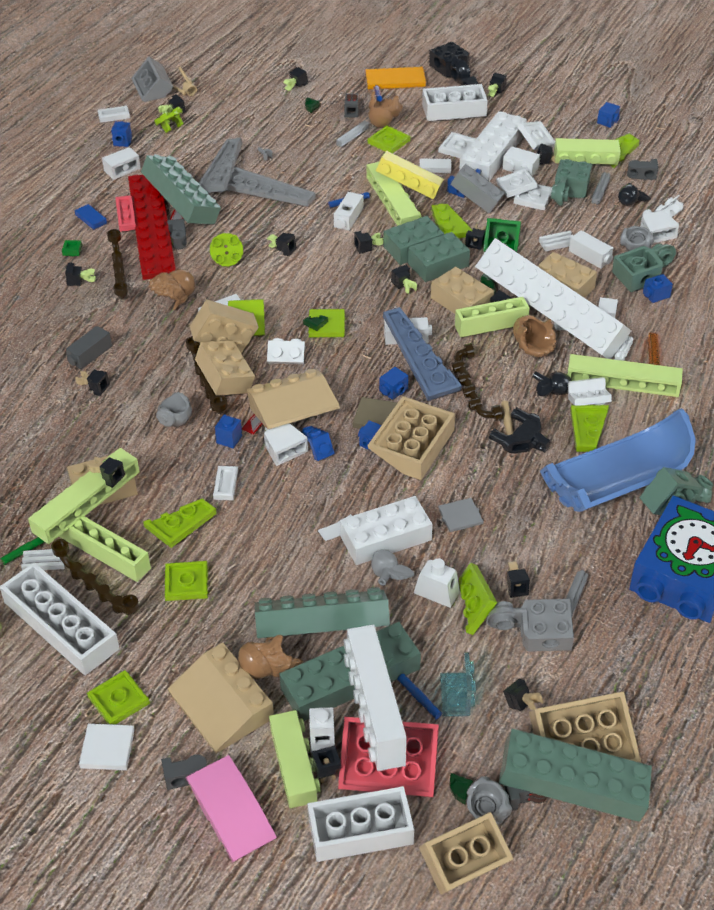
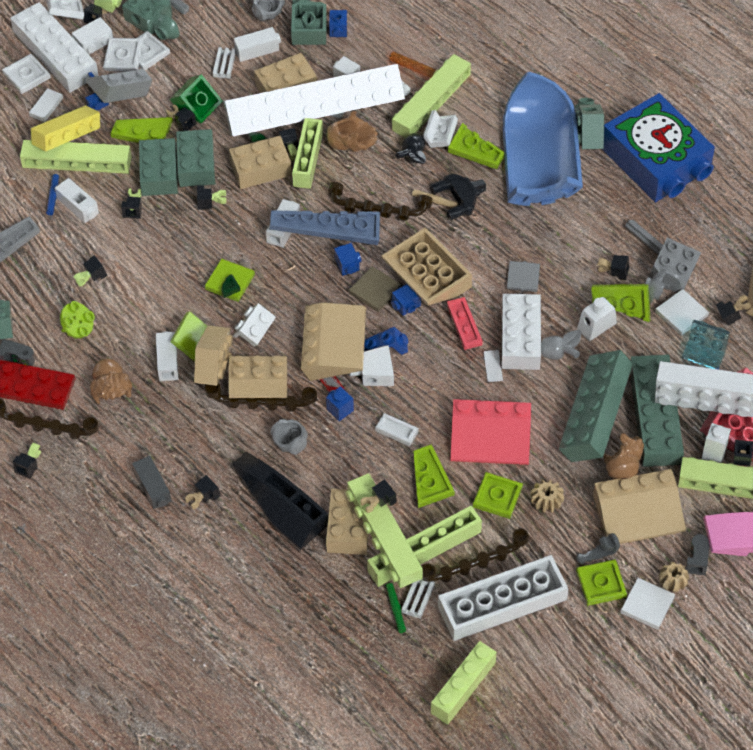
camera: 65 degrees left, 10 degrees up
(107, 430) = (282, 501): none -> black wedge
(143, 755) = (673, 577): none -> tan piece
(156, 684) = (607, 547): none -> dark grey piece
(199, 616) = (547, 495): none -> tan gear
(254, 549) = (491, 432): none -> coral slope
(372, 487) = (464, 323): none -> coral plate
(497, 657) = (681, 311): none -> white tile

